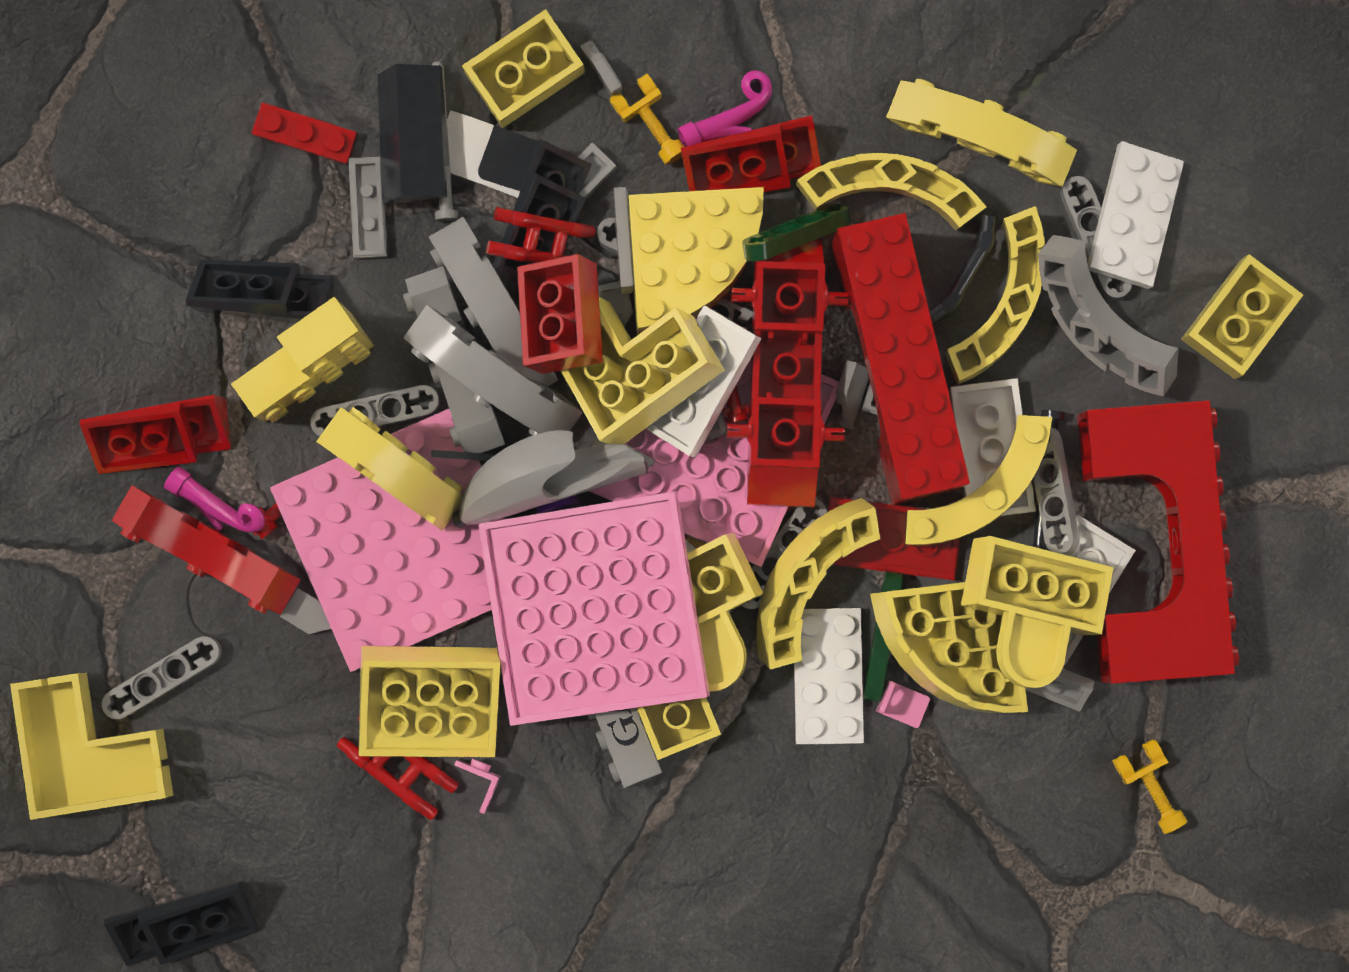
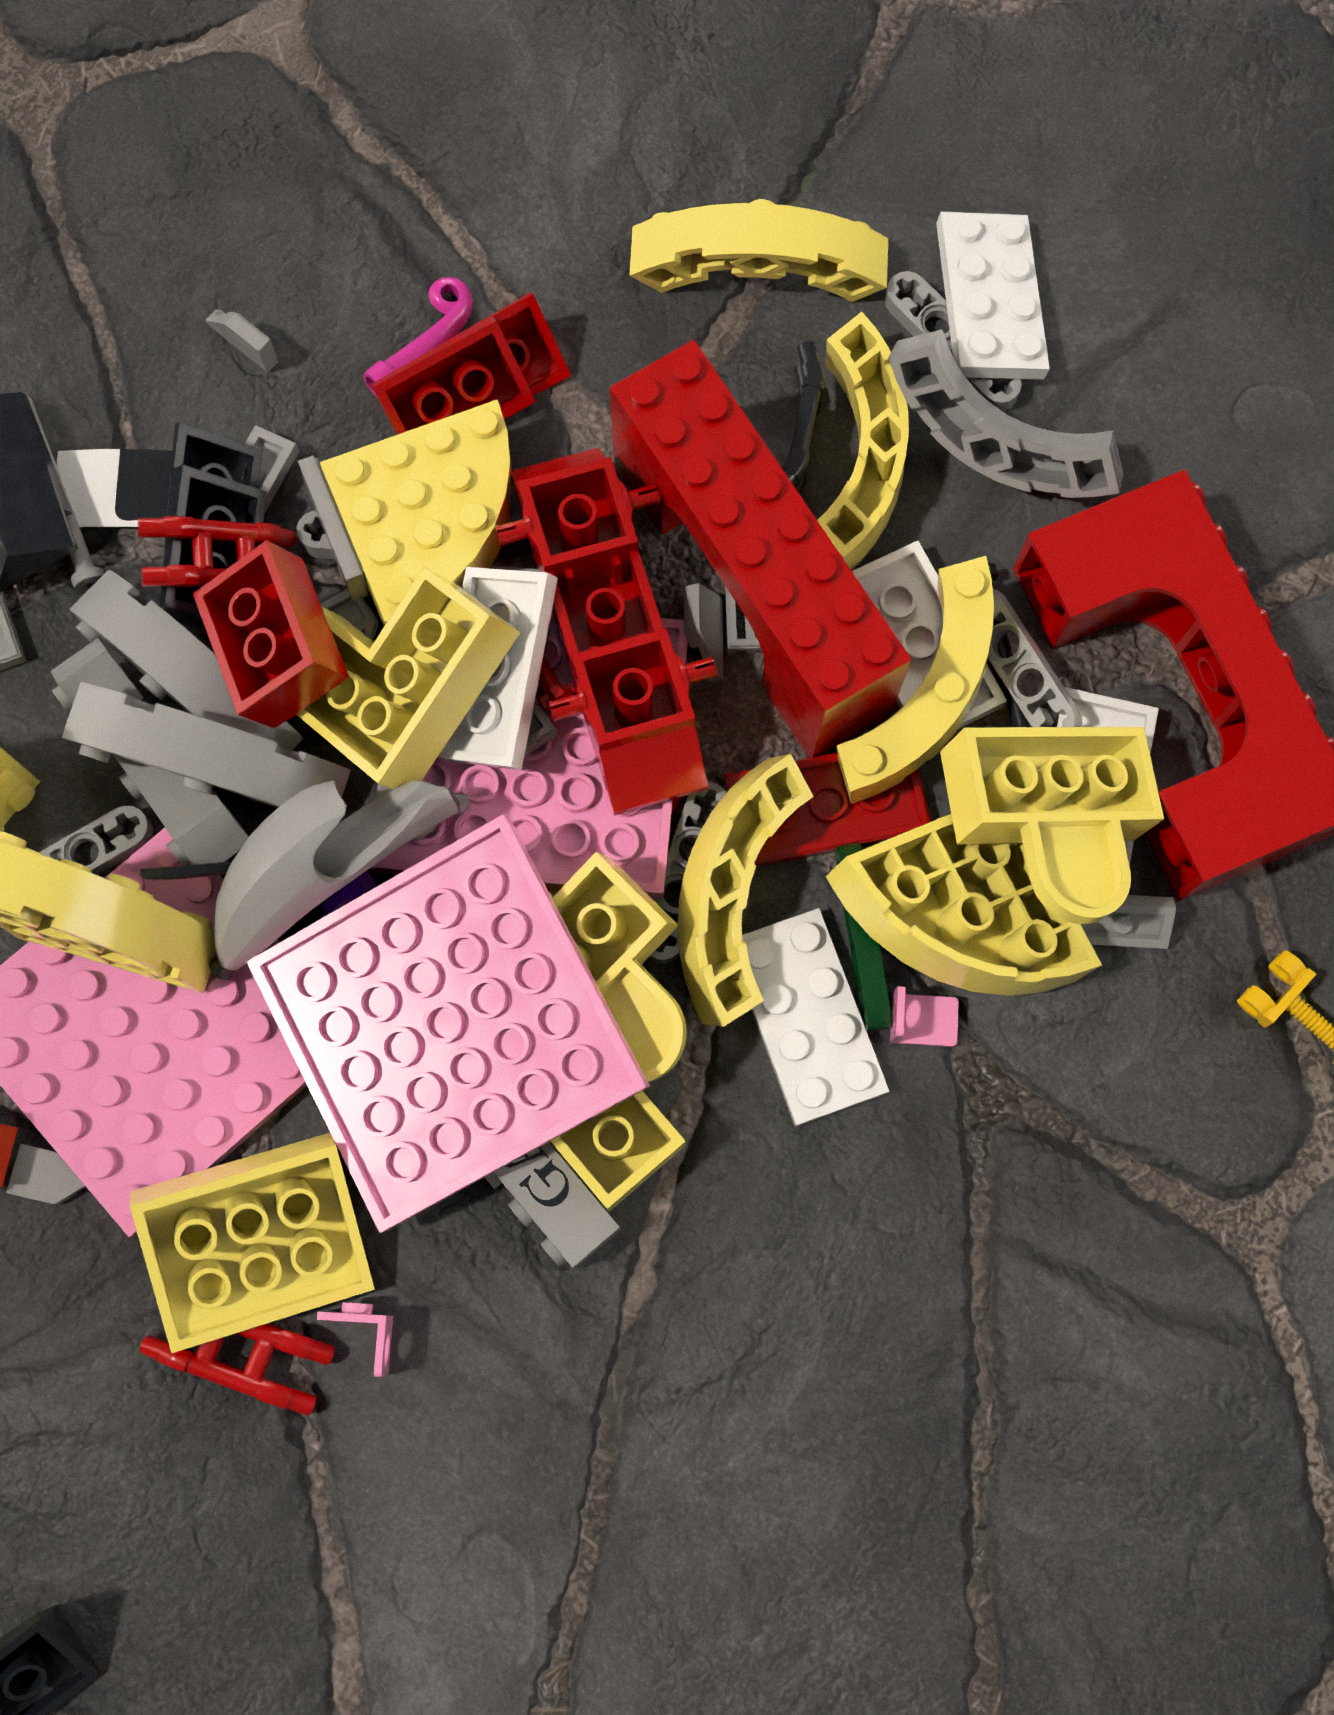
camera: 20 degrees left, 10 degrees down
(524, 68) = (134, 360): light yellow brick -> none
(670, 148) = (362, 403): yellow bar -> none
(796, 232) = (553, 446): dark green beam -> none
(896, 175) = (730, 339): light yellow brick -> none
(1242, 317) = (1178, 370): light yellow brick -> none

